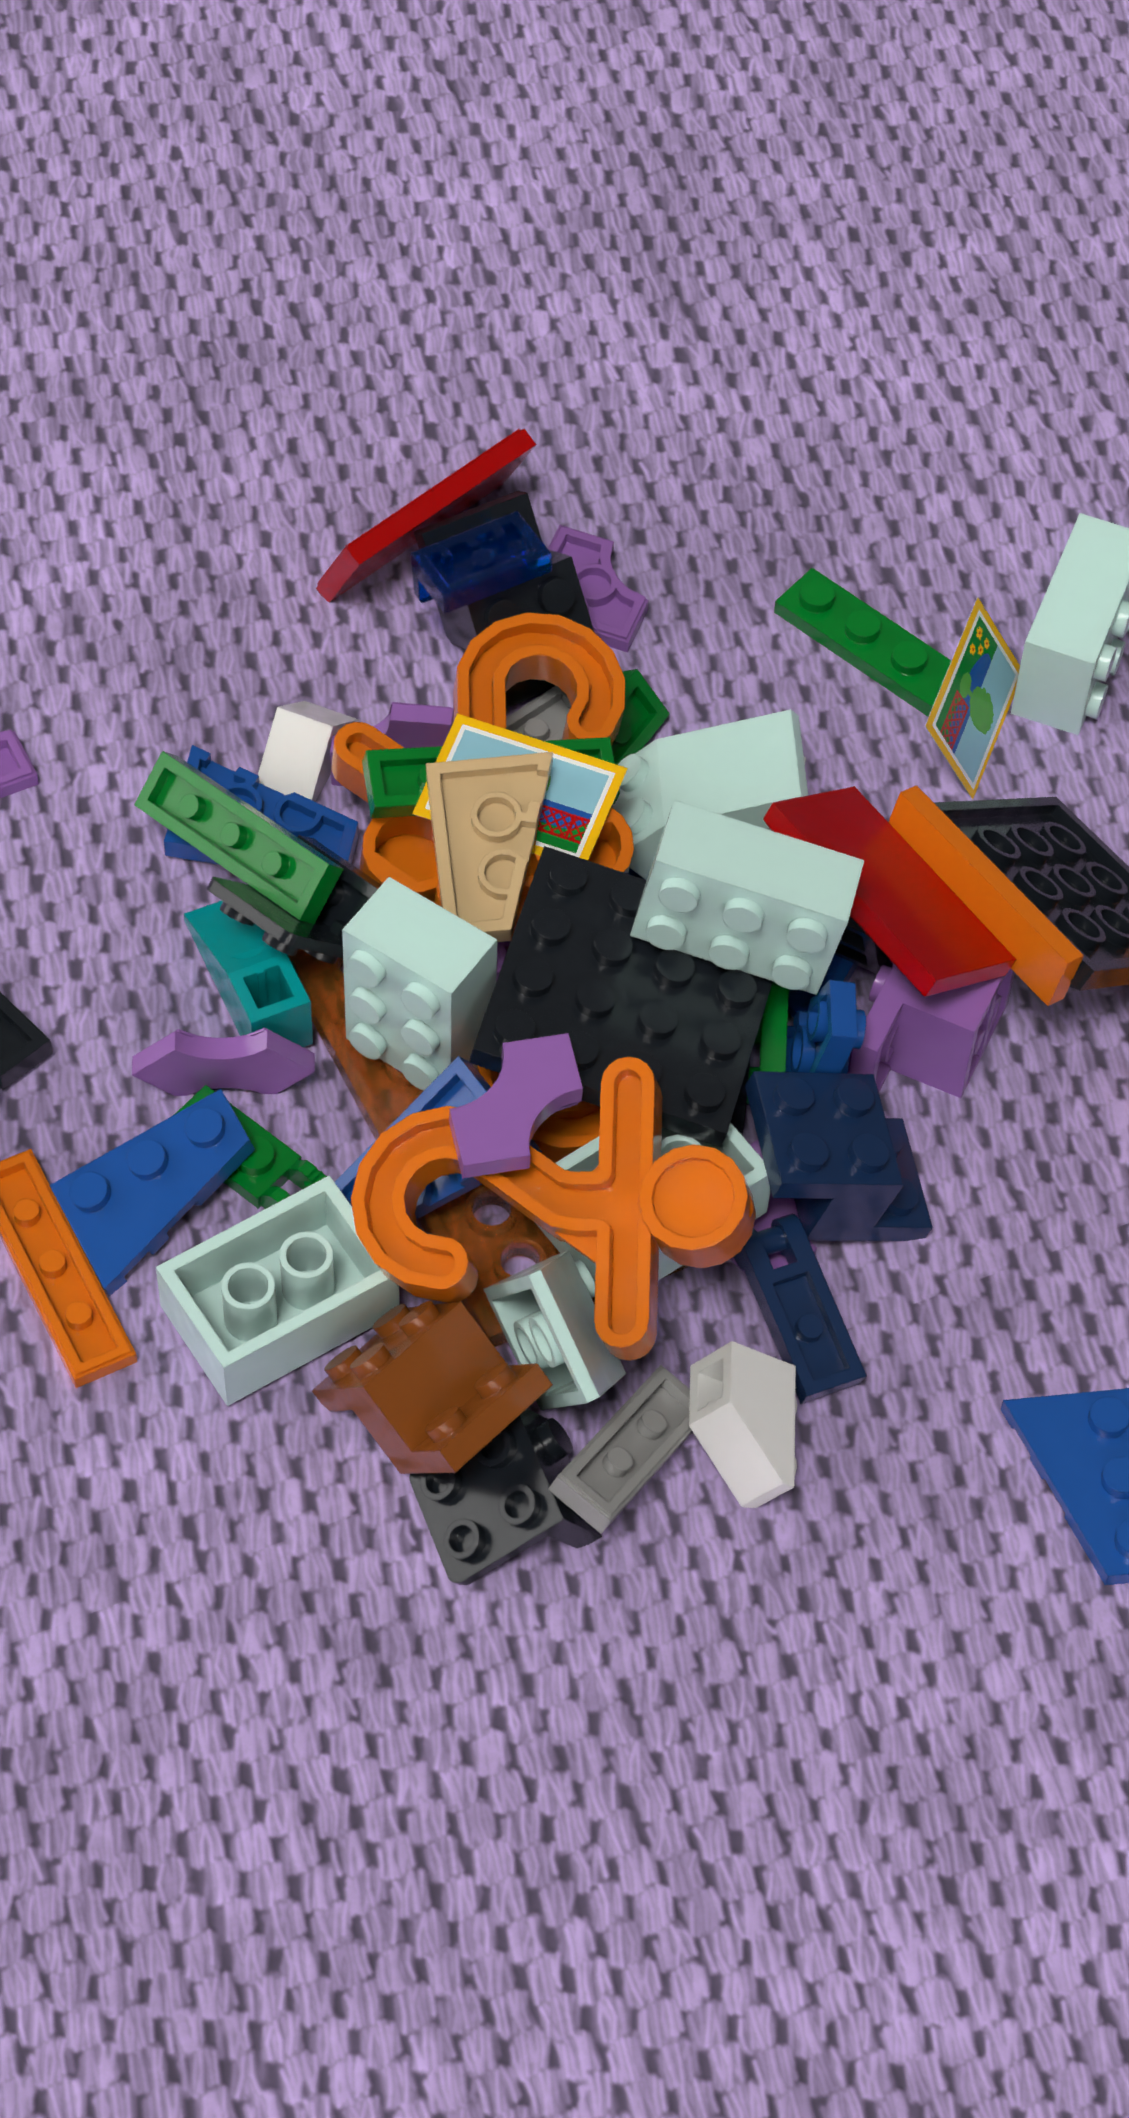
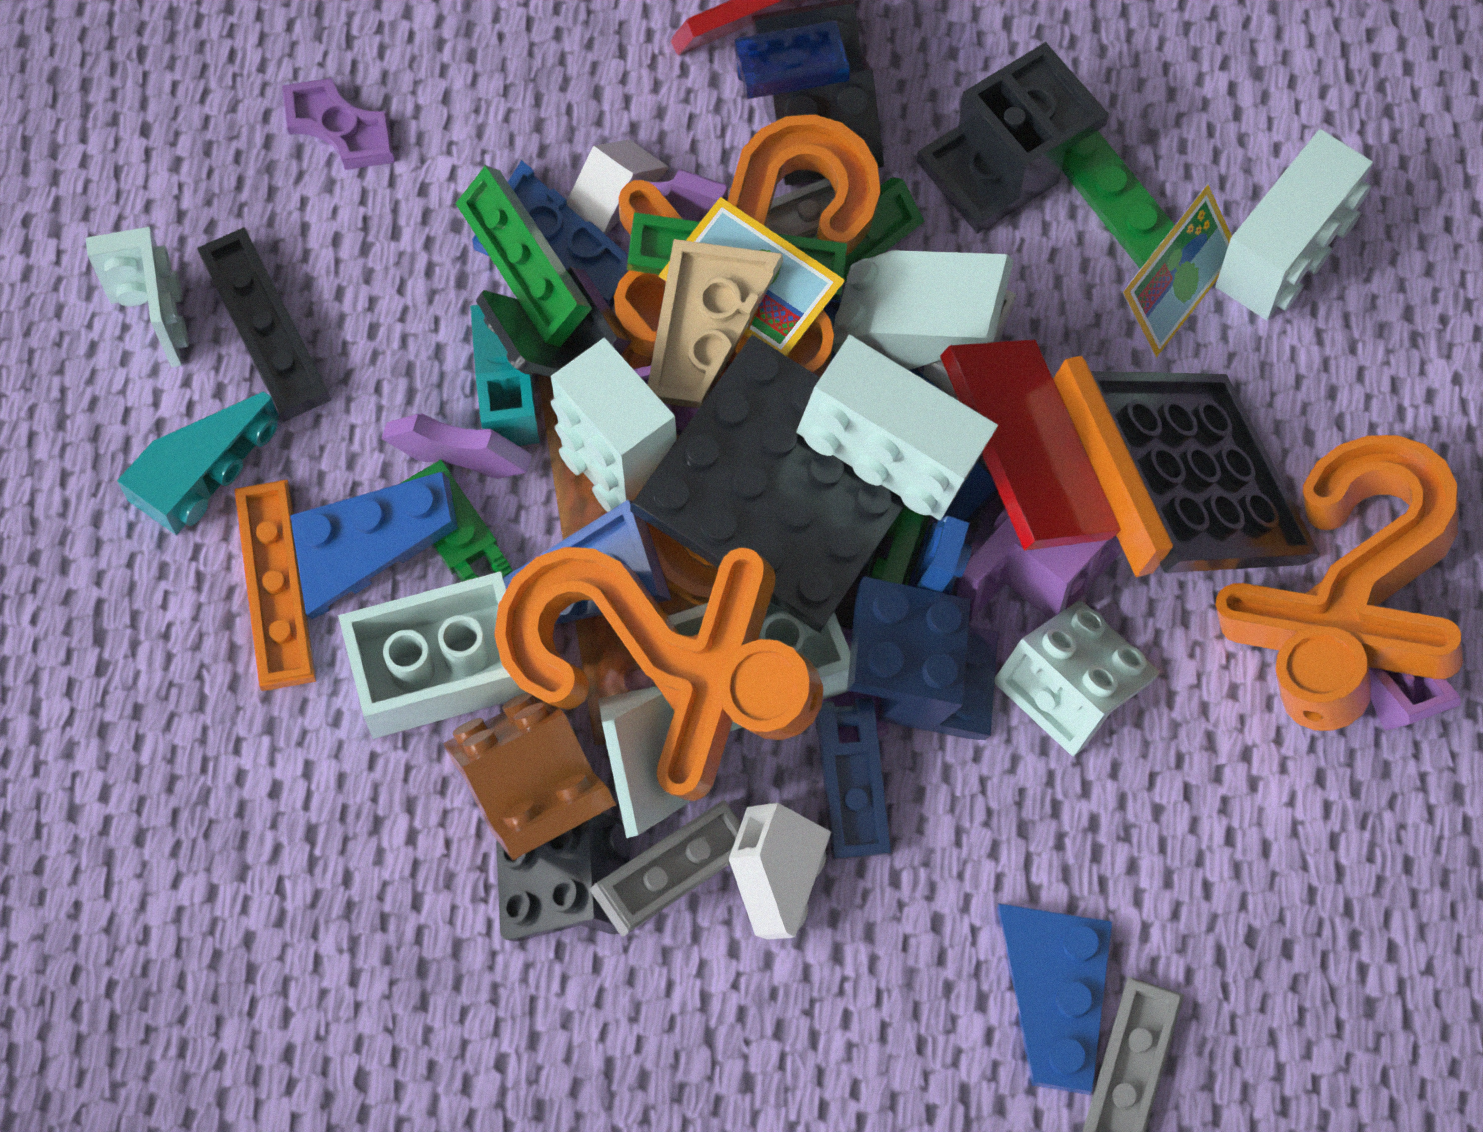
camera: 20 degrees right, 10 degrees up
(533, 1084) = (626, 580): medium lavender tile -> none
(612, 606) = (902, 109): medium lavender tile -> none
(742, 601) = (1012, 137): none -> black bracket
(1000, 1144) = (1074, 675): none -> light aqua bracket

